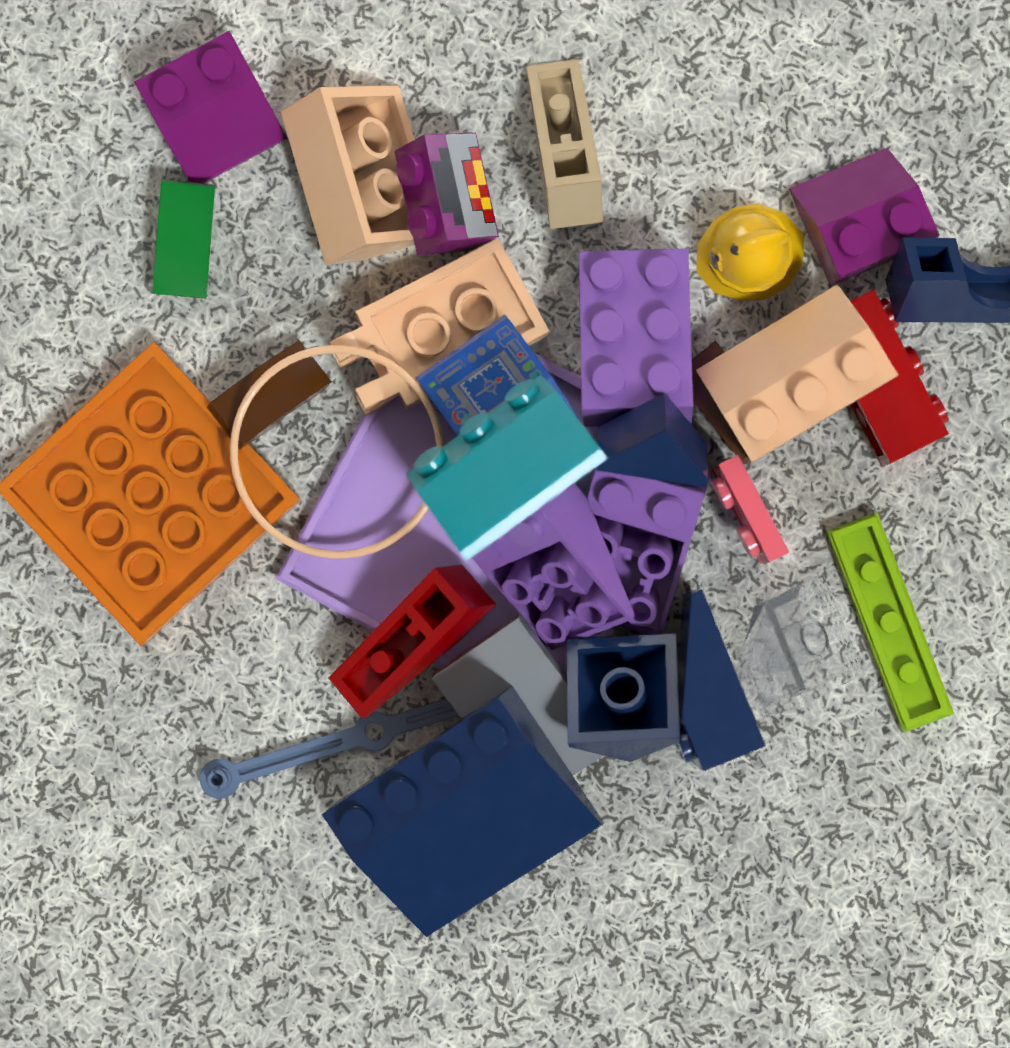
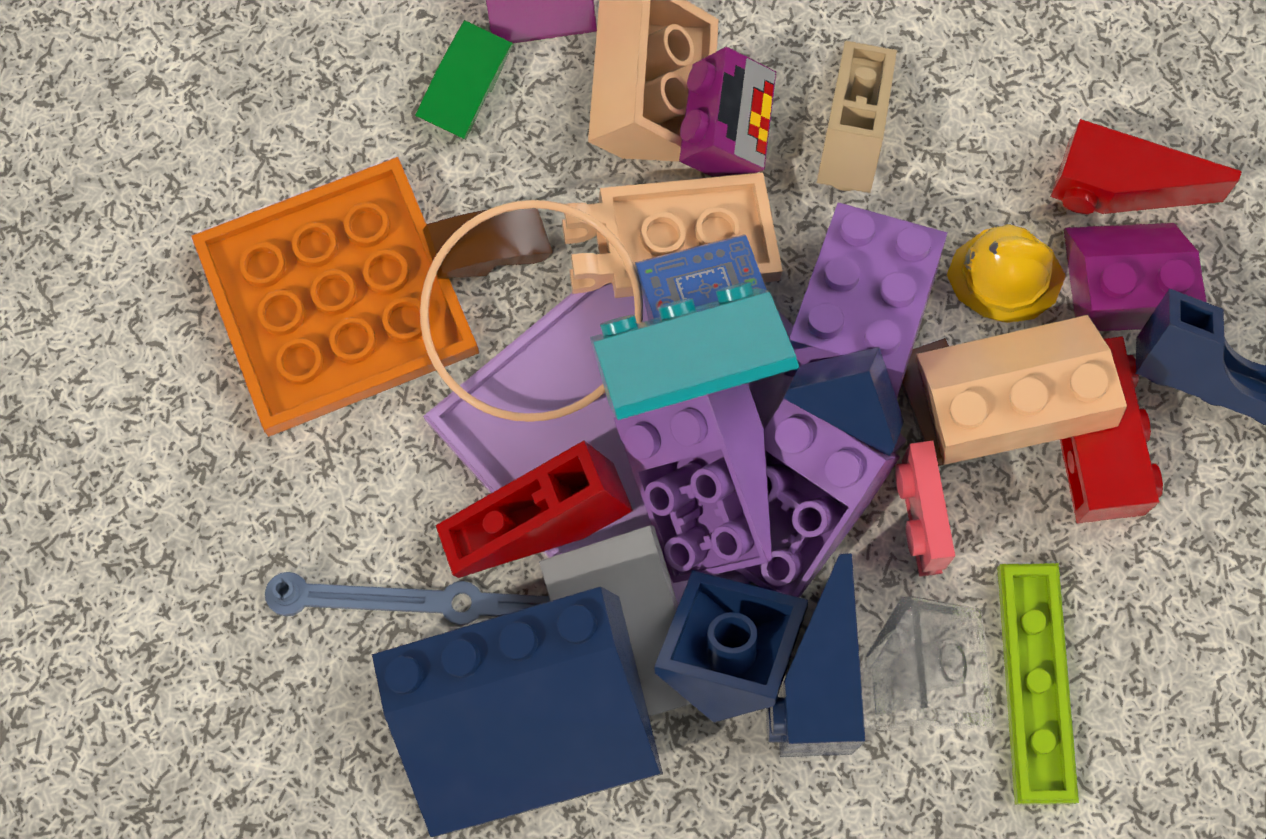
camera: 20 degrees right, 15 degrees down
(821, 120) = (1125, 173): none -> red slope

